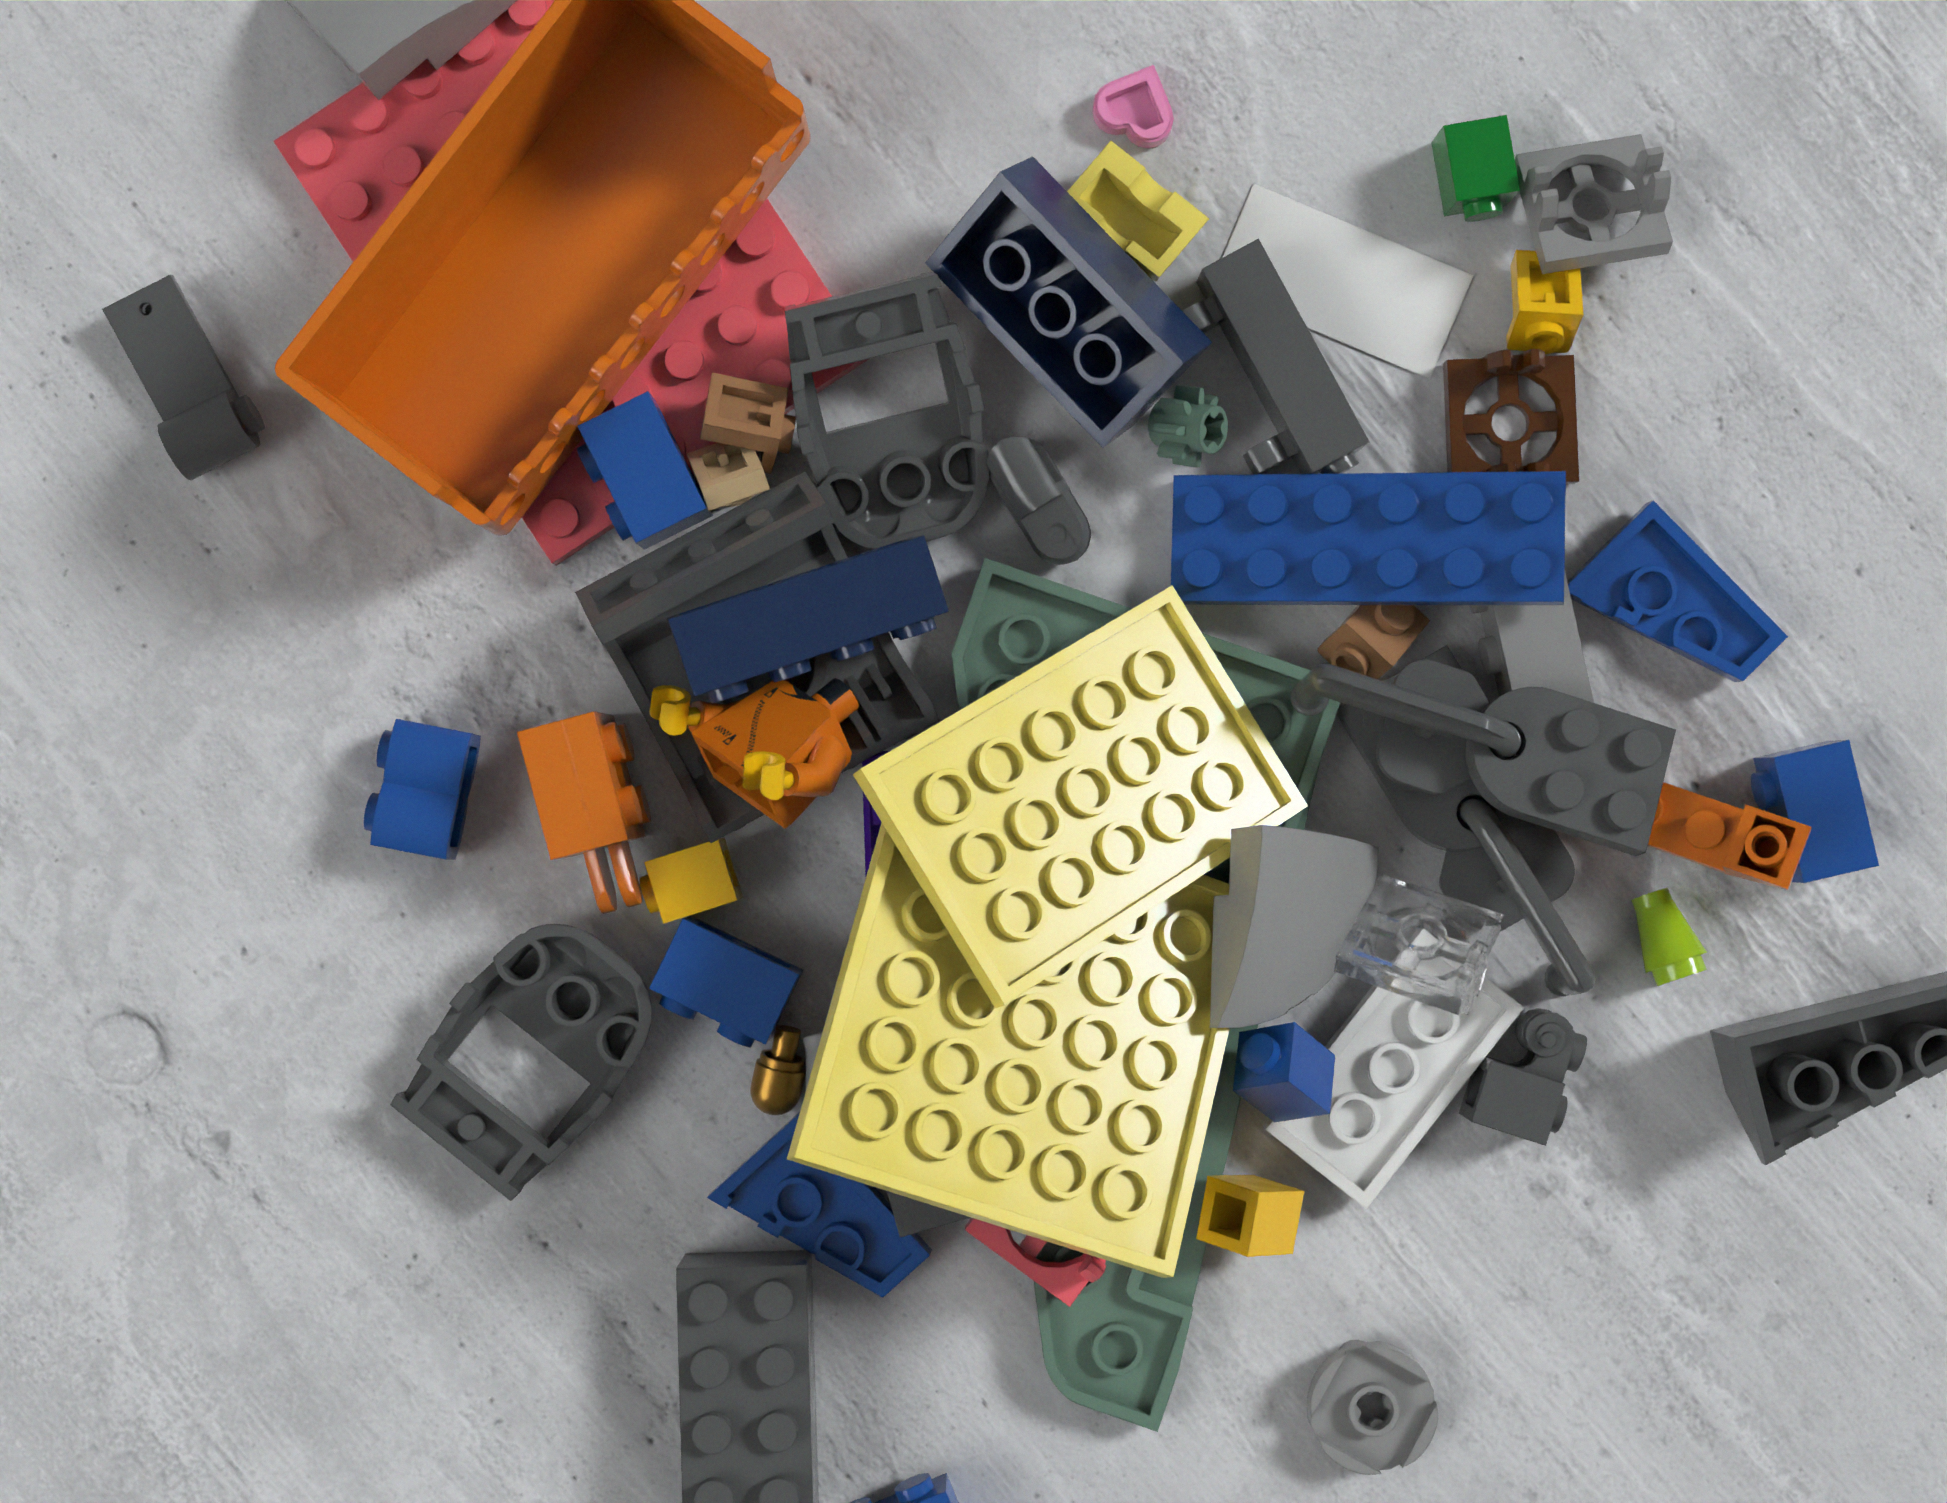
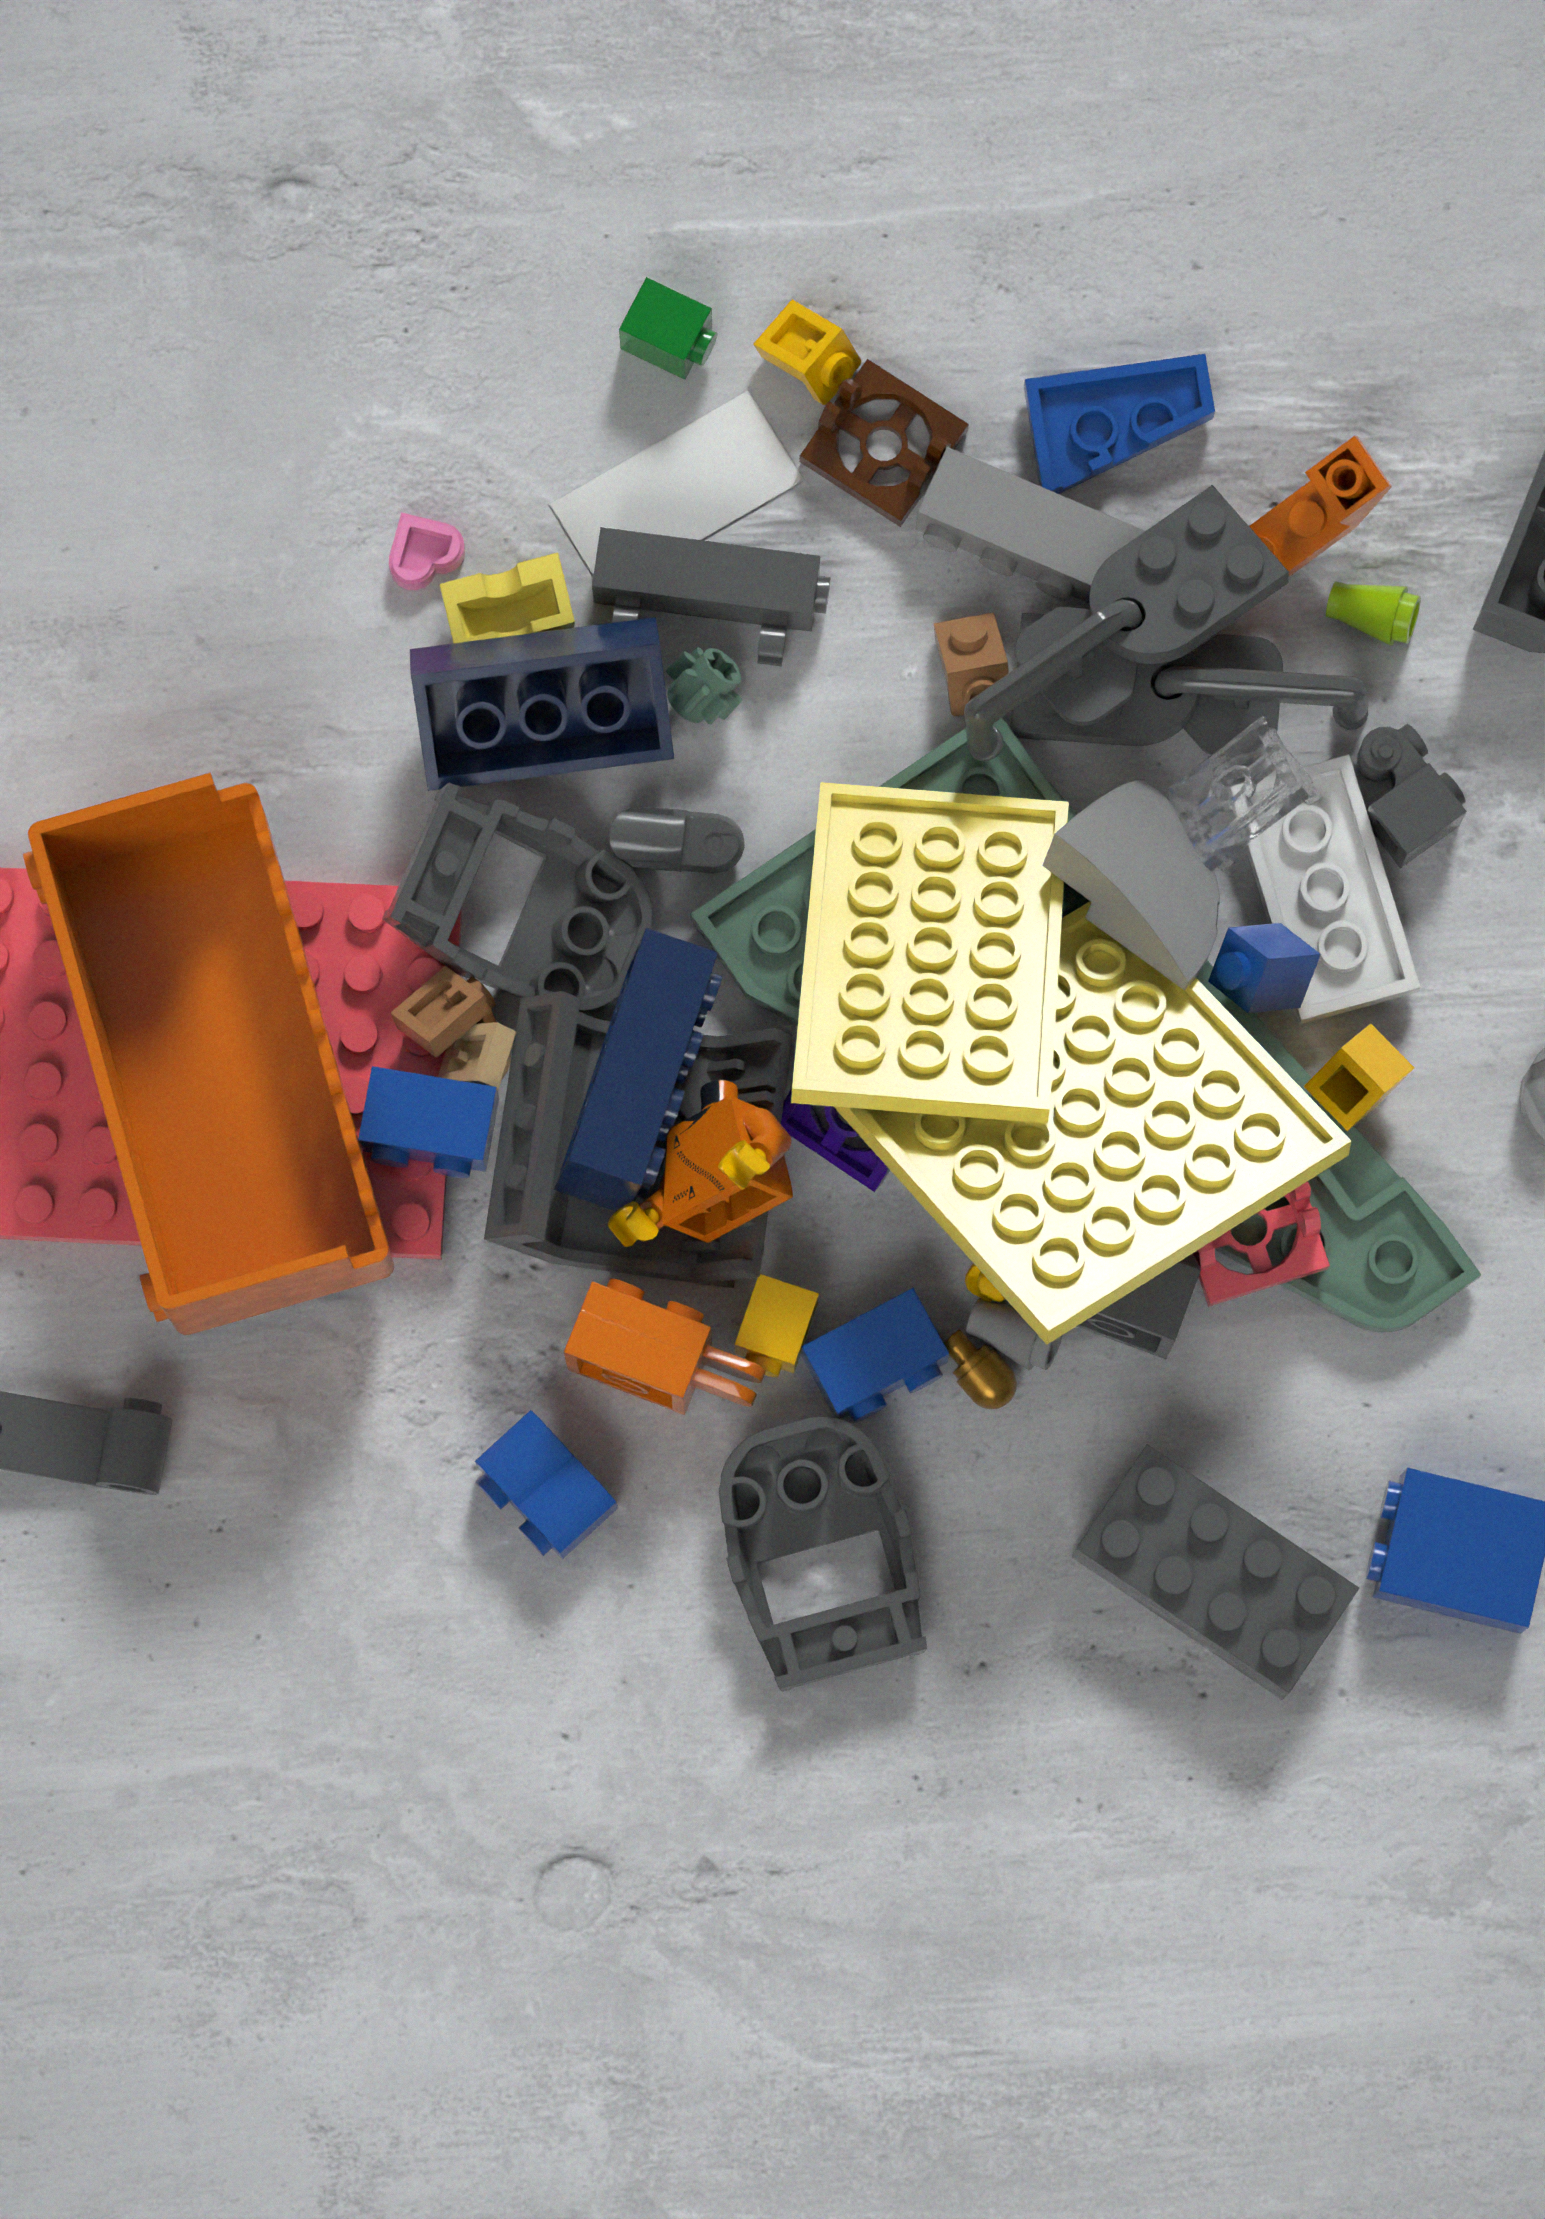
camera: 55 degrees left, 10 degrees down
(828, 1215) = (1111, 1410): blue wing -> none
(1370, 538) = (894, 611): blue plate -> none
(1543, 211) = (740, 300): light grey piece -> none
(1823, 791) = (1341, 408): blue brick -> none

